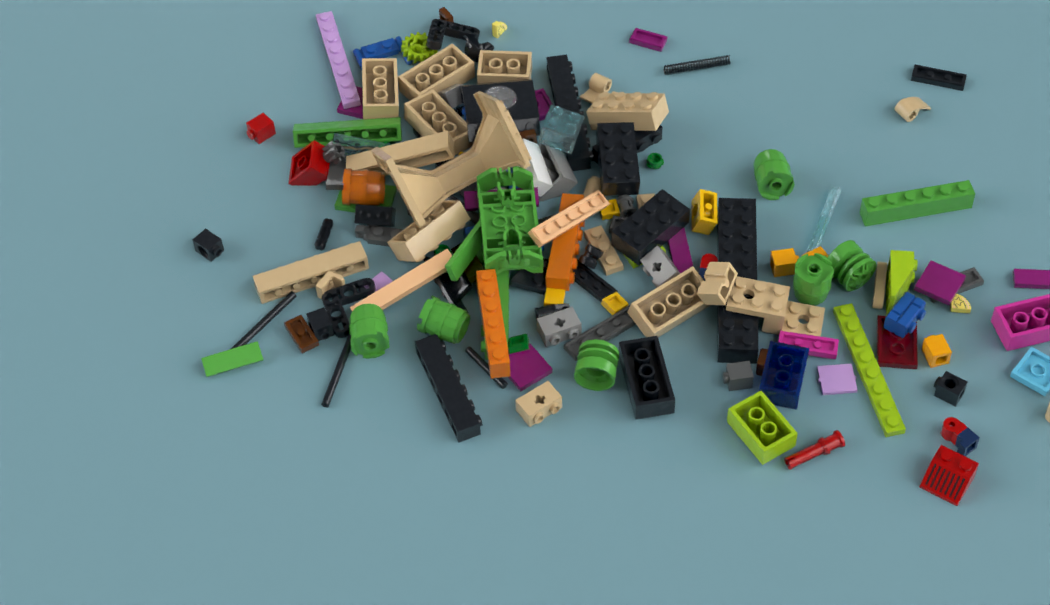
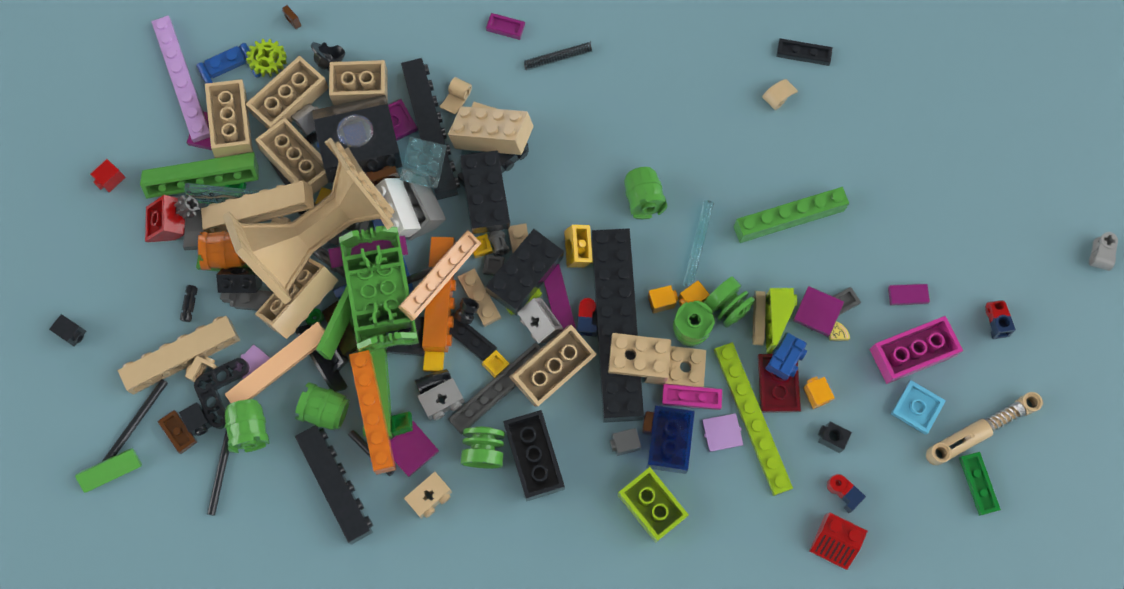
camera: 10 degrees left, 20 degrees up
(442, 27) = (291, 33): black beam -> none
(498, 28) = (347, 25): light yellow tile -> none
(592, 185) = (461, 224): tan cone -> none
(654, 161) = (523, 178): green plate -> none
(717, 284) = (598, 346): tan brick -> none
(823, 446) = (714, 516): red pin -> none

